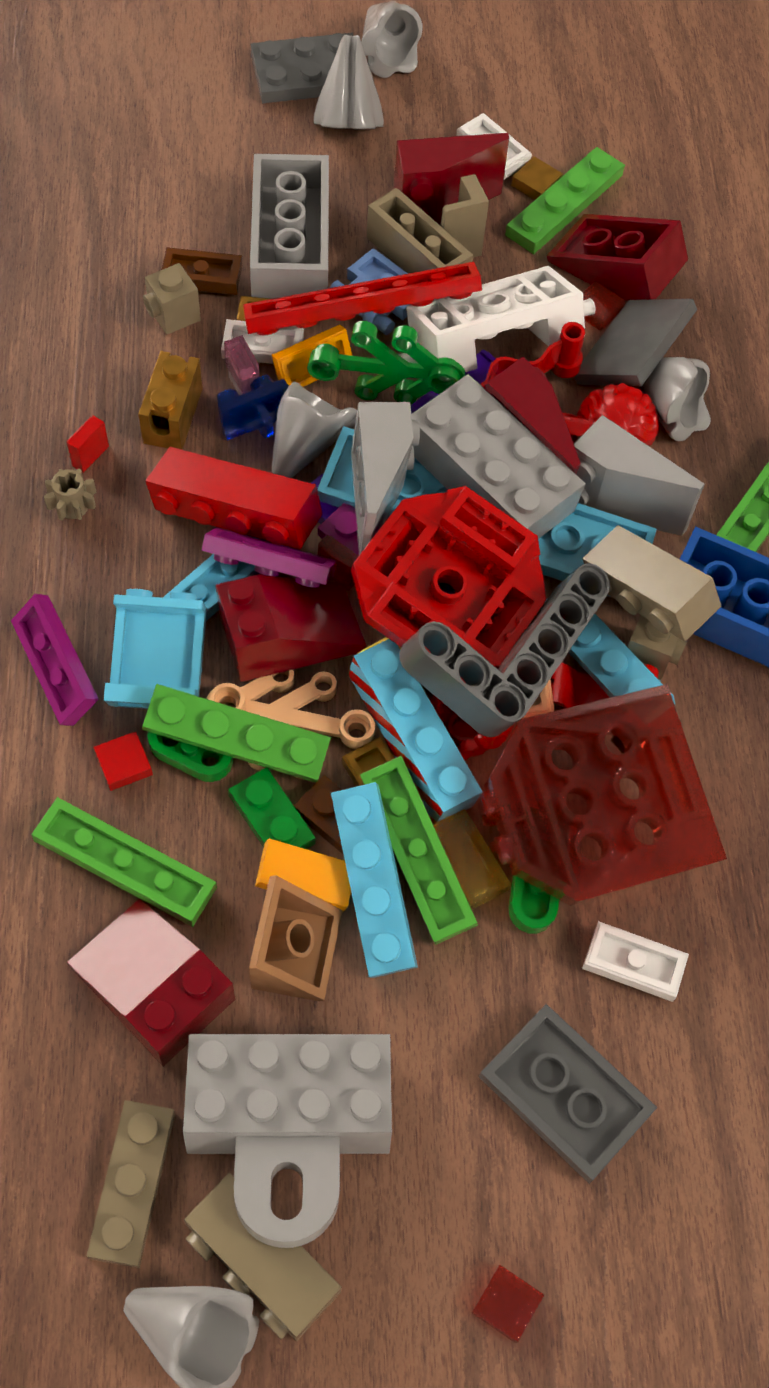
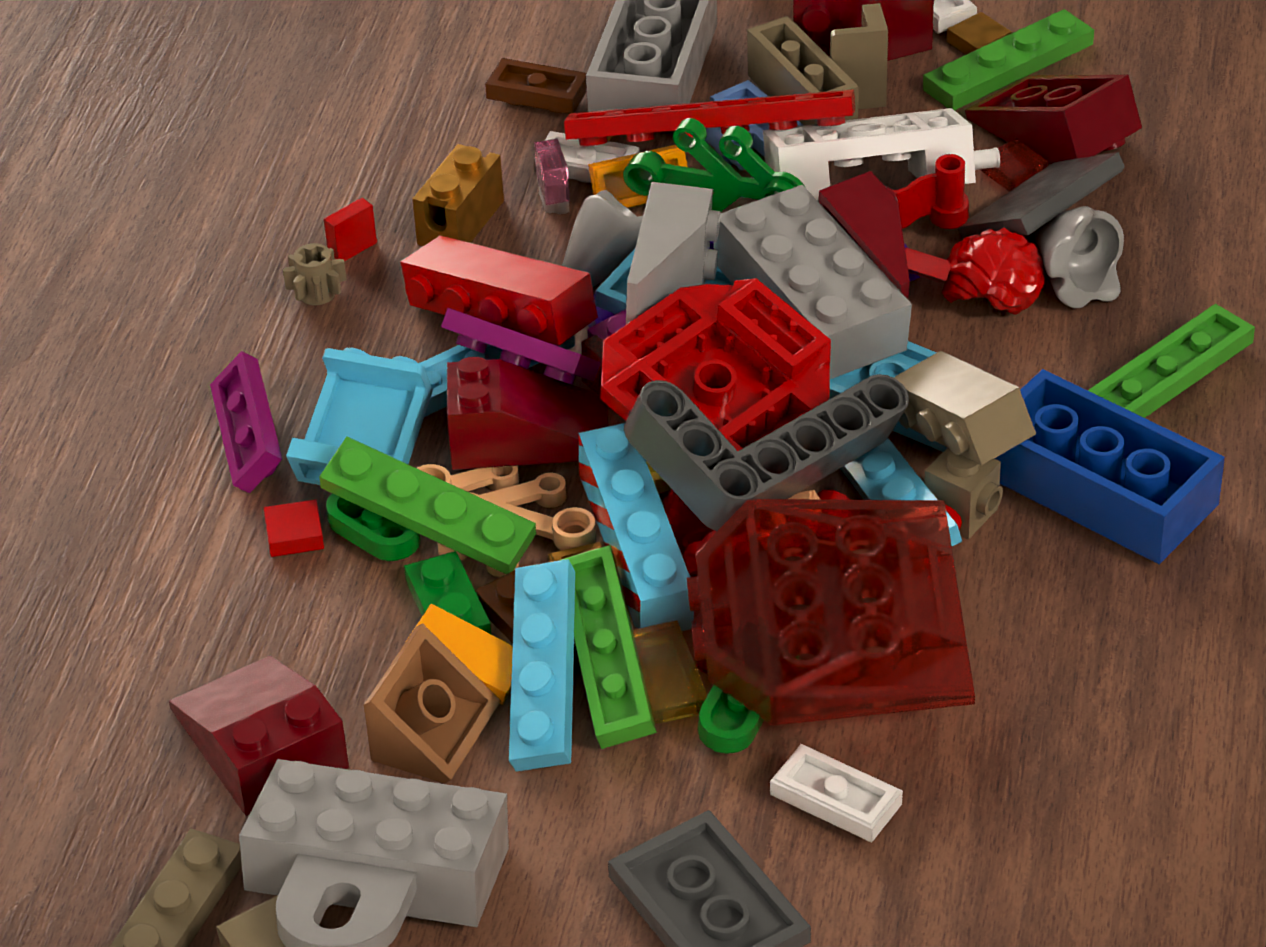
camera: 20 degrees right, 20 degrees down
(124, 861) = (264, 615): bright green plate -> none
(172, 298) = (491, 105): dark tan brick -> none
(252, 409) = (547, 217): clear blue hips -> none
(634, 479) = (979, 317): light grey slope -> none

